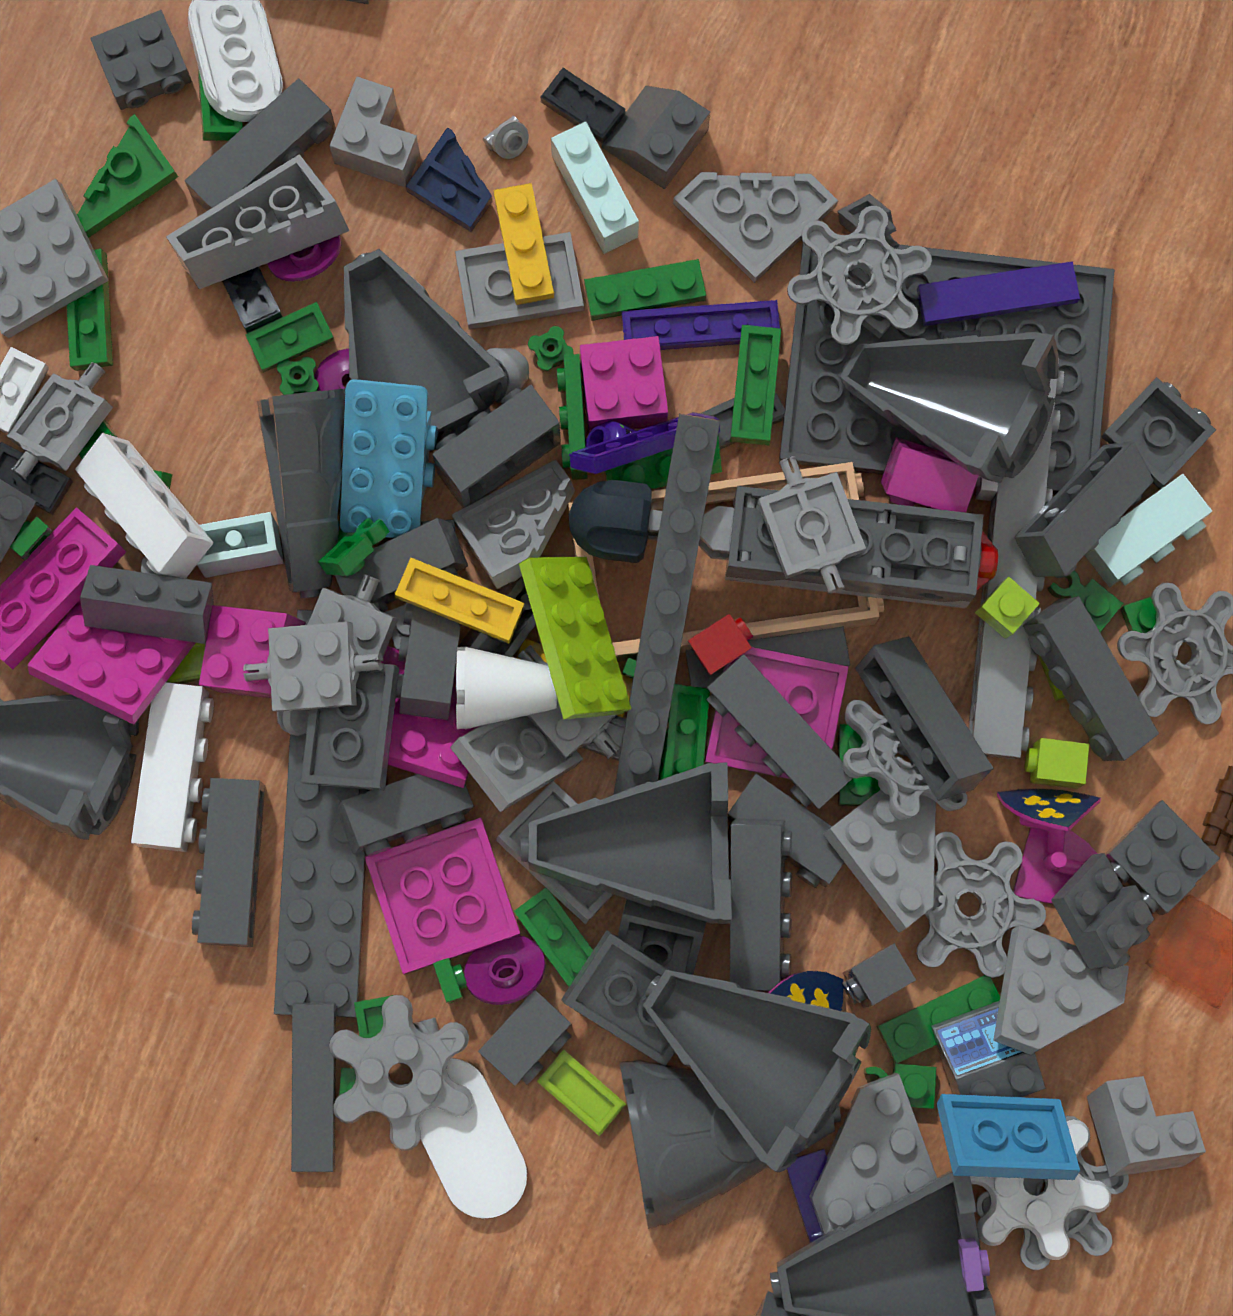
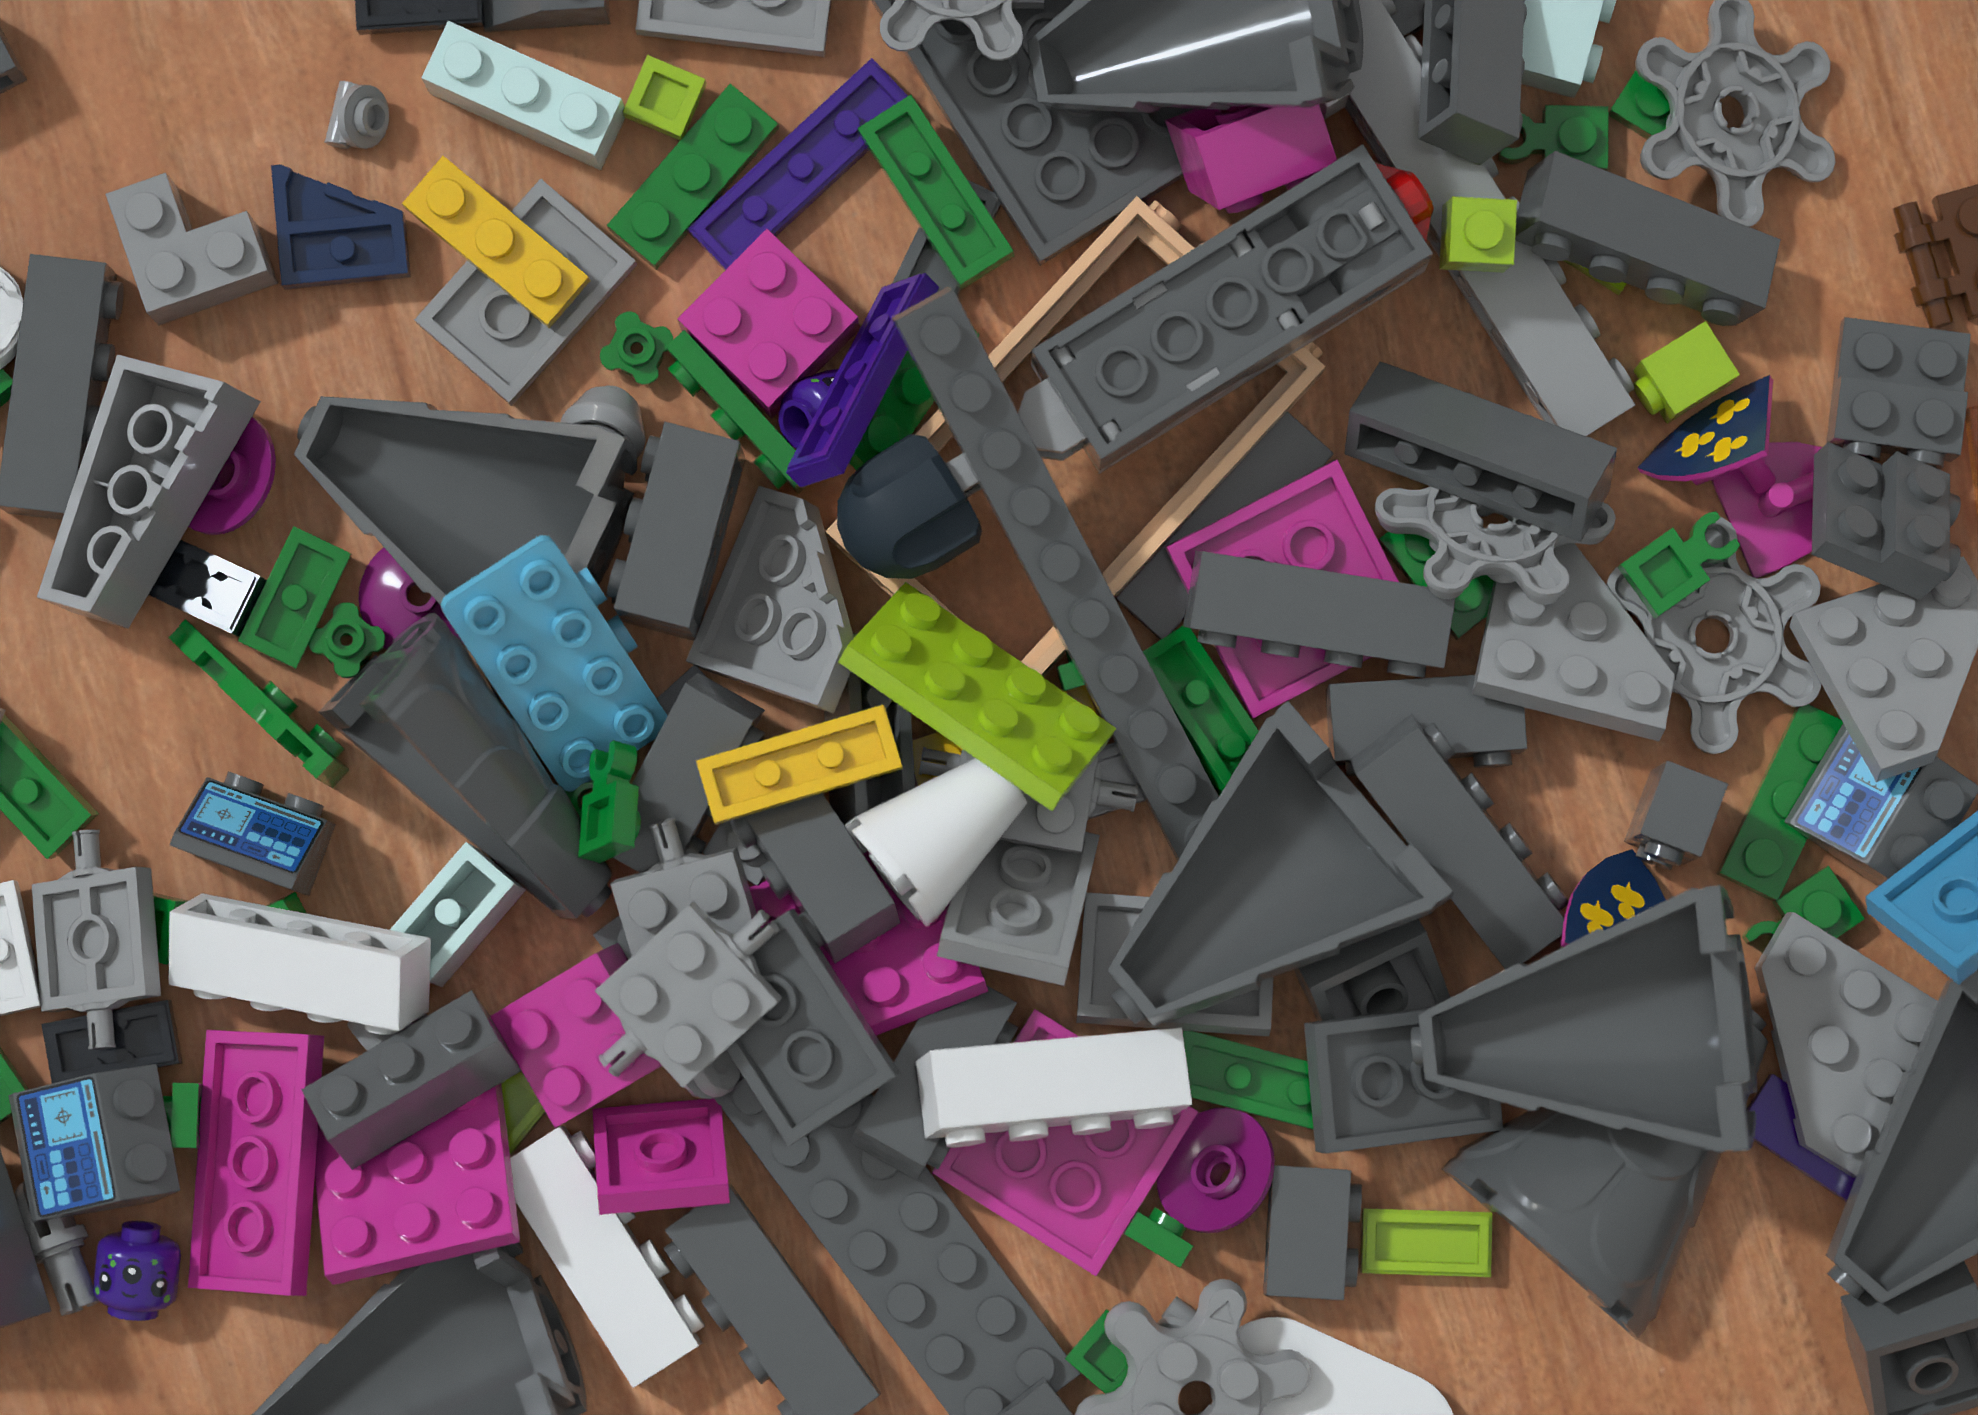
camera: 35 degrees left, 5 degrees up
(175, 431) = (255, 834): none -> slope
(233, 380) = (267, 706): none -> green wing
(238, 740) = (660, 1156): none -> dark pink plate
(457, 859) = (1052, 1085): none -> white brick
(661, 241) = (664, 98): none -> lime plate
(721, 643) = (1161, 558): red brick -> none
(811, 525) = (1165, 328): light grey plate -> none
(973, 852) = (1672, 568): none -> green plate

